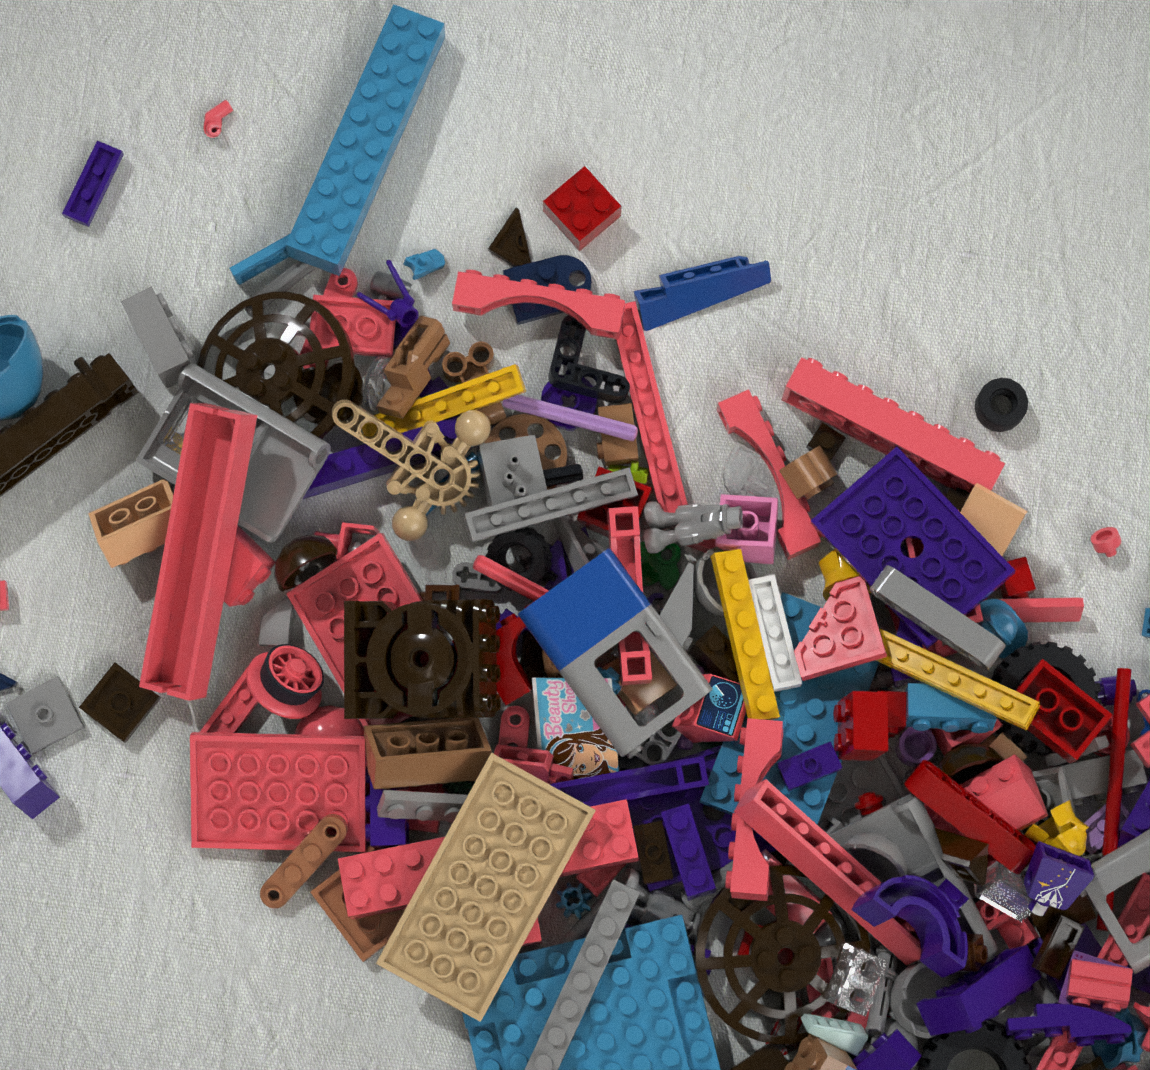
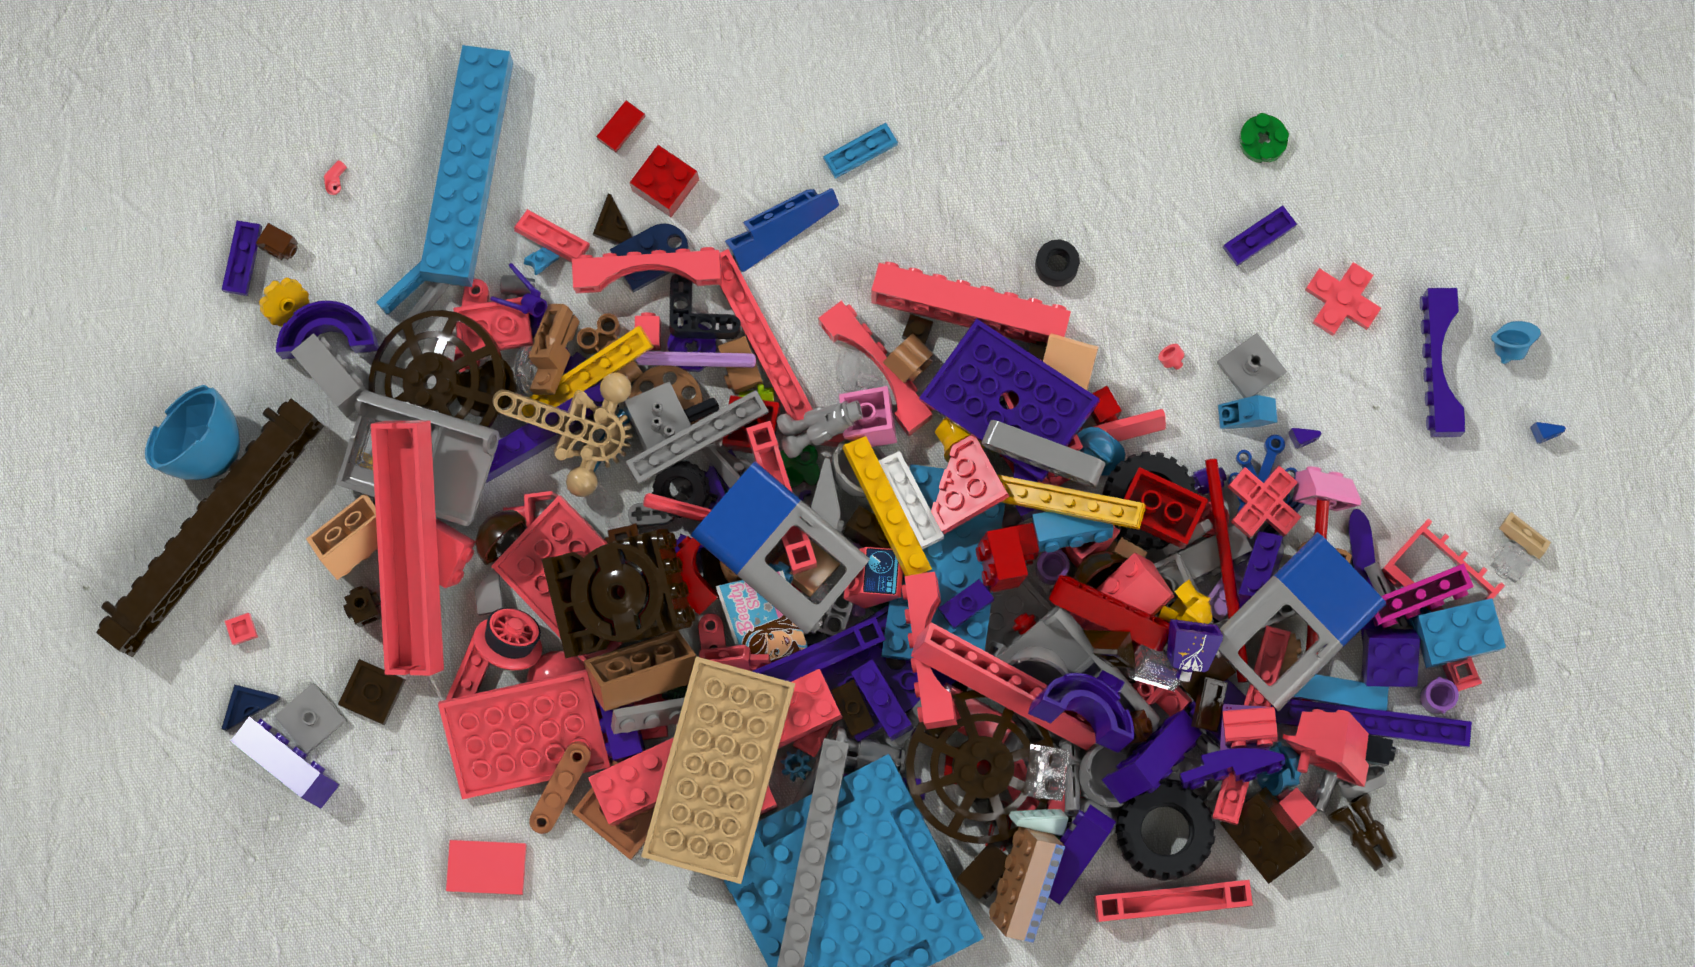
camera: 10 degrees left, 0 degrees up
(127, 243) = (283, 300): none -> yellow plant
(136, 176) = (277, 242): none -> reddish brown window
(139, 611) = (368, 612): none -> dark brown brick
(167, 271) = (323, 318): none -> dark purple brick
(200, 930) = (486, 867): none -> coral tile
(441, 240) = (551, 236): none -> coral tile
(529, 368) = (652, 326): none -> coral brick
(547, 136) = (620, 126): none -> red tile
(809, 226) = (860, 150): none -> dark azure tile

